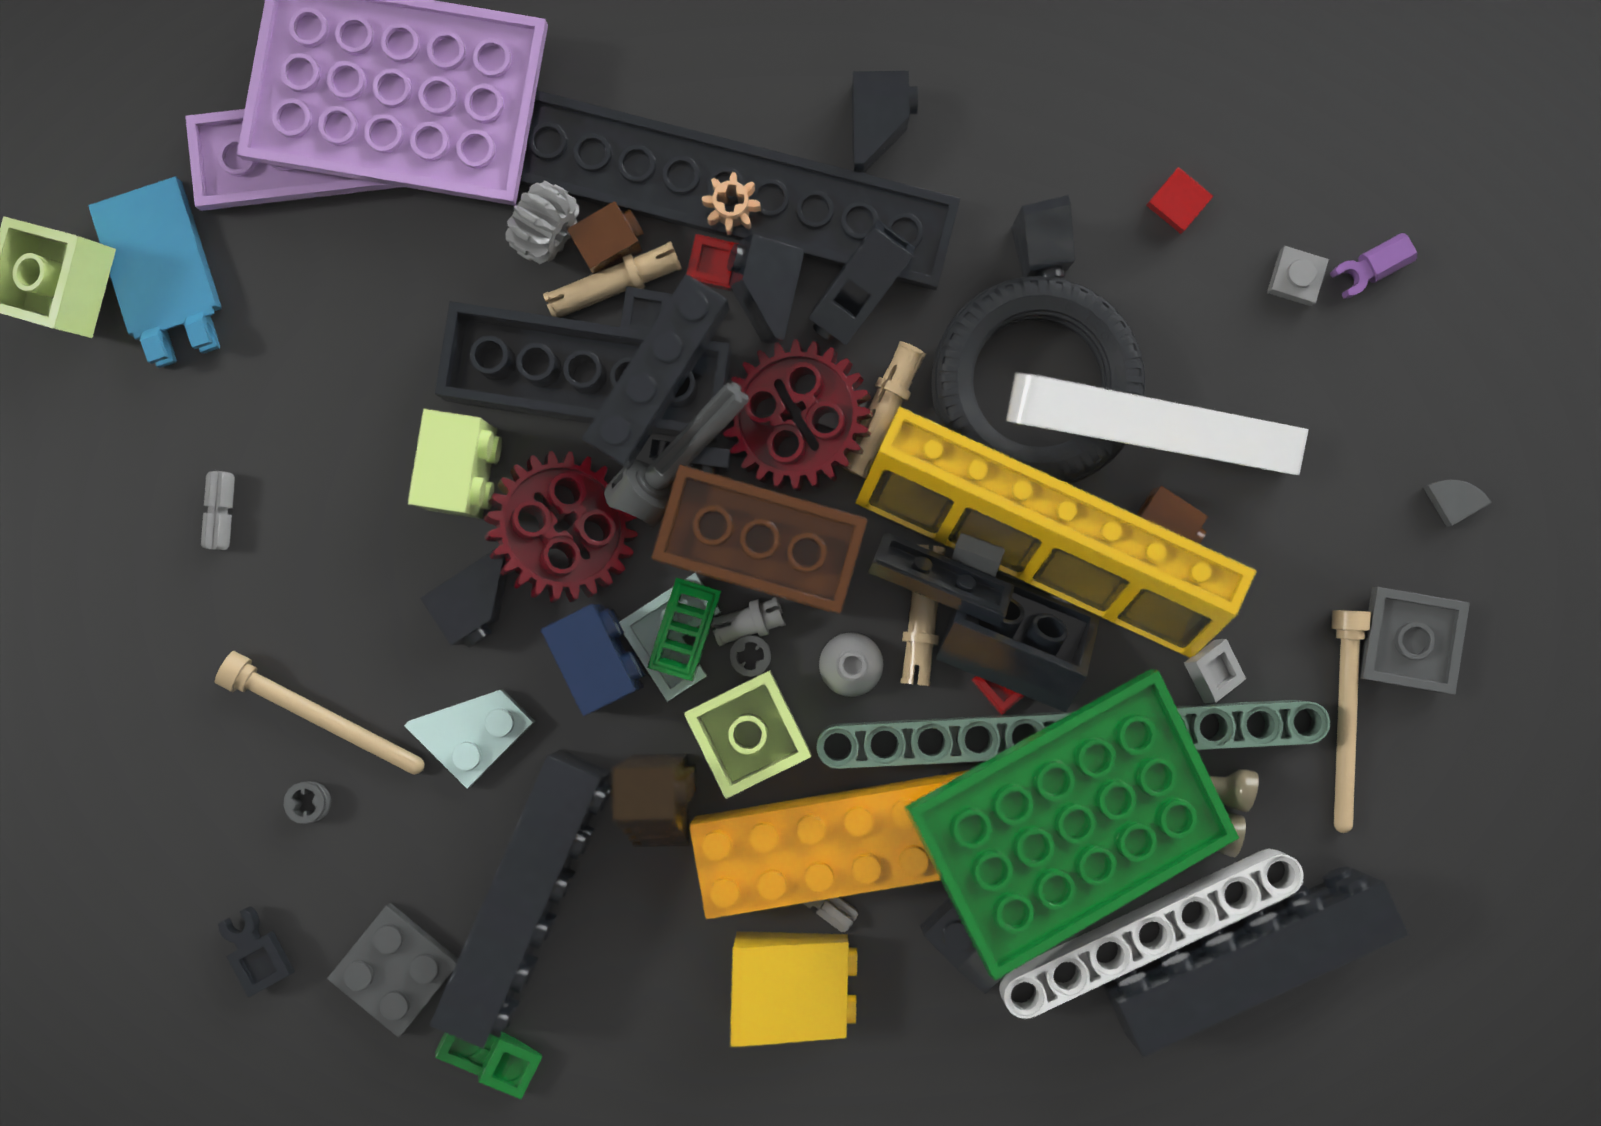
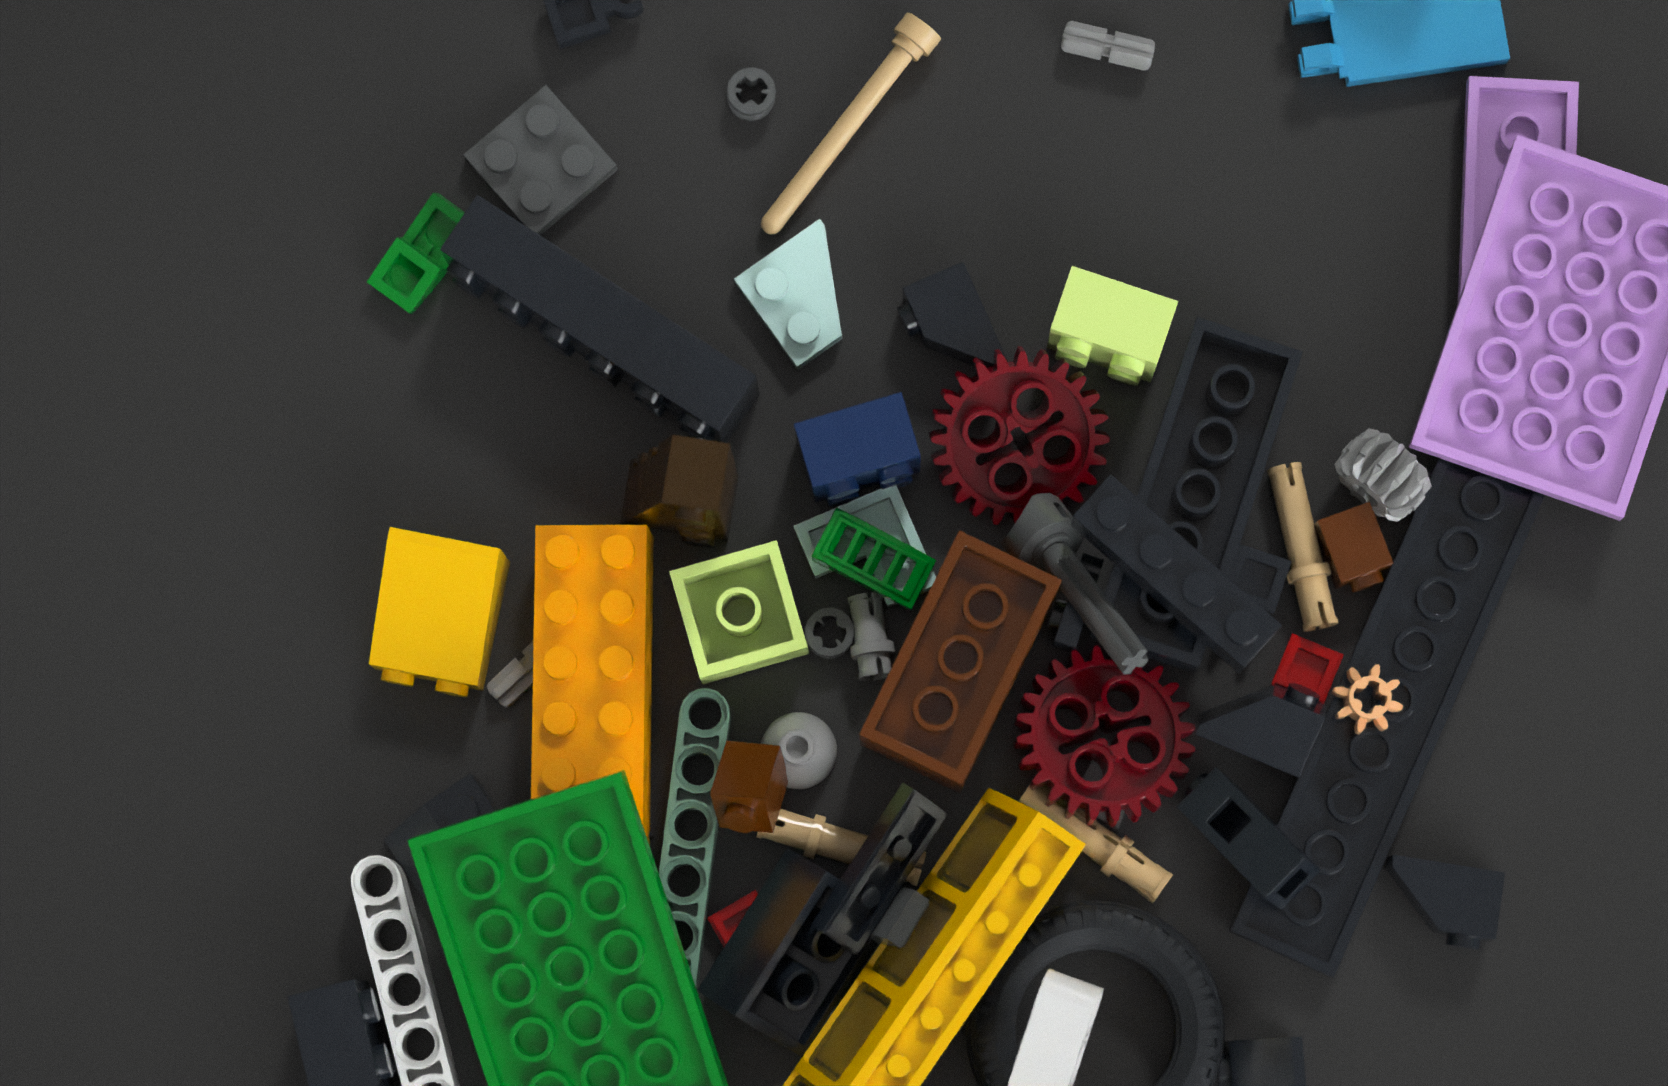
camera: 105 degrees right, 5 degrees down
(893, 699) = (749, 787): none -> reddish brown brick

